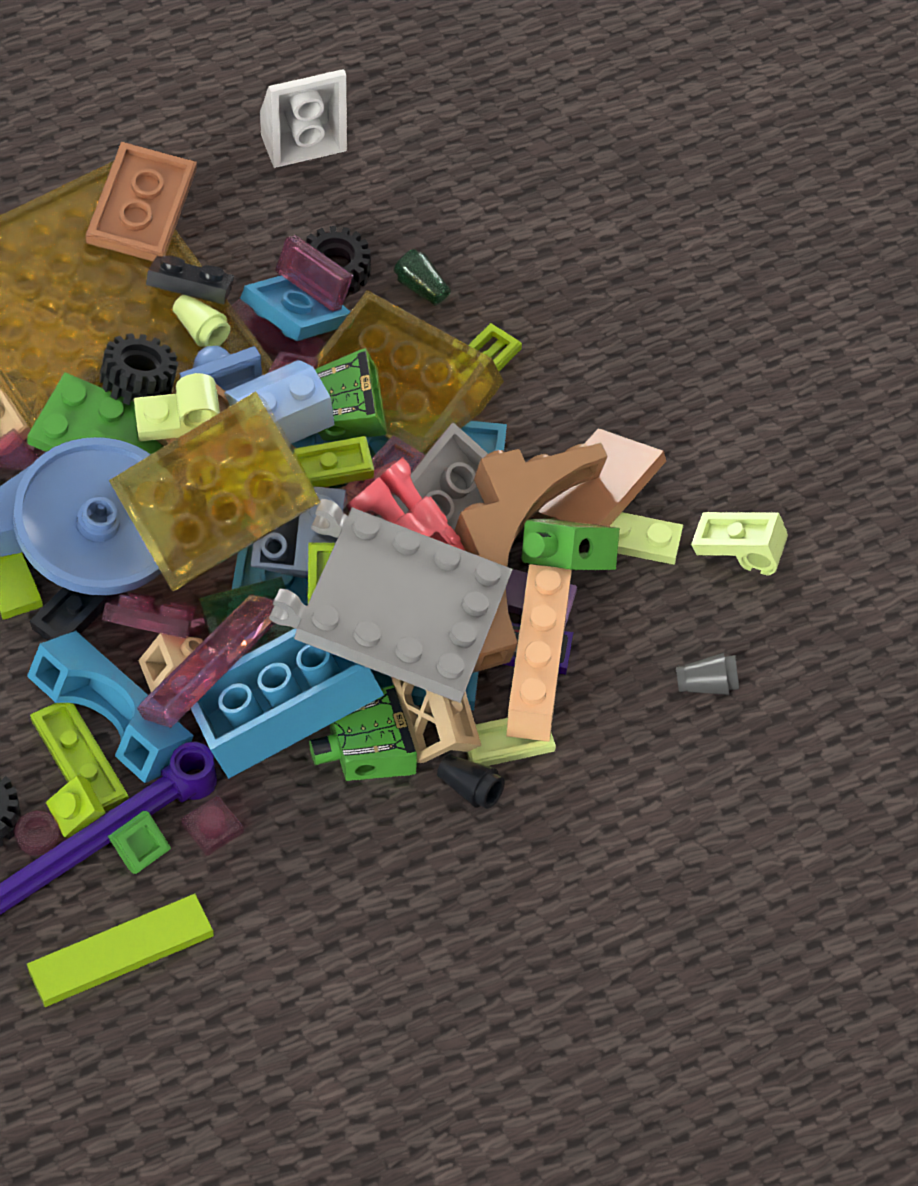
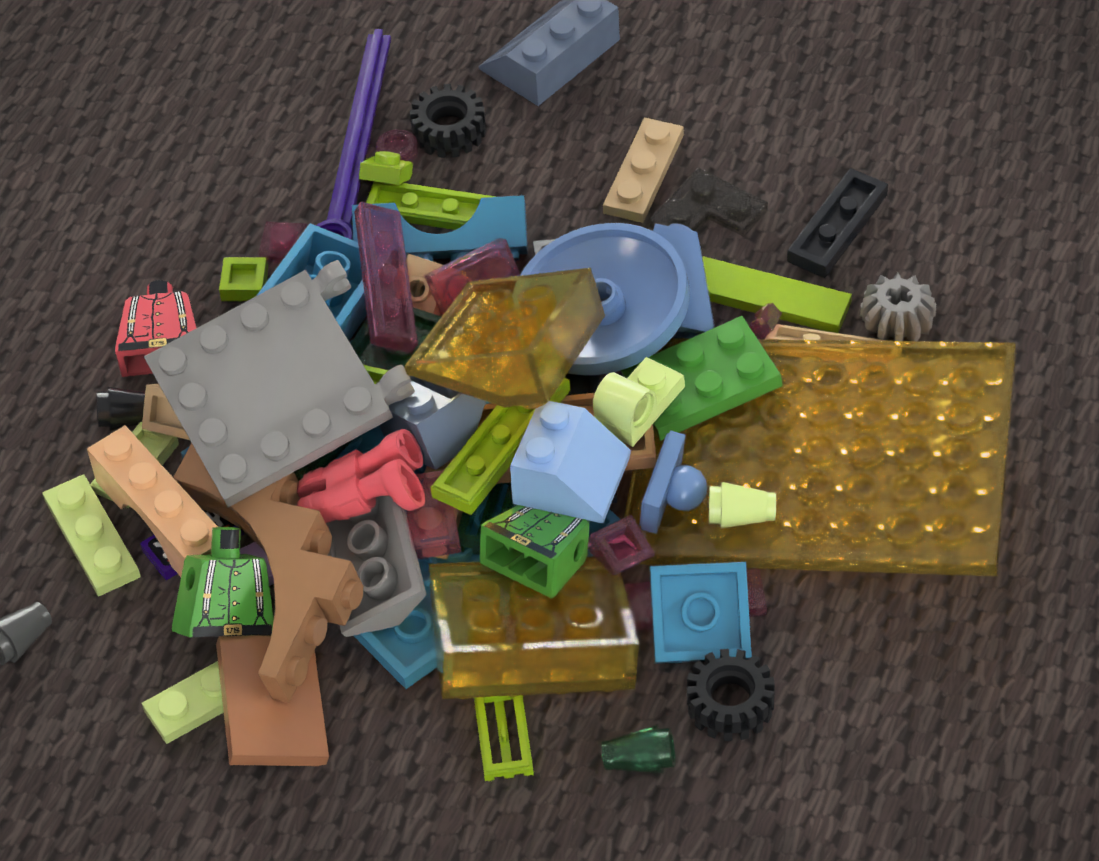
camera: 140 degrees right, 5 degrees down
(119, 950) = (253, 136): lime tile -> none
(125, 356) = (724, 391): black tyre -> none
(139, 842) = (316, 187): bright green tile -> none
(141, 202) = (922, 543): nougat tile -> none
(200, 282) = (790, 520): black plate -> none
(278, 812) = (242, 277): none -> lime plate
(305, 118) = (922, 767): white slope -> none
(313, 273) = (715, 638): clear pink tile -> none
(386, 817) = (151, 323): none -> coral torso
(589, 711) = (91, 535): none -> yellowish green plate
(751, 537) = (84, 759): yellowish green plate -> none

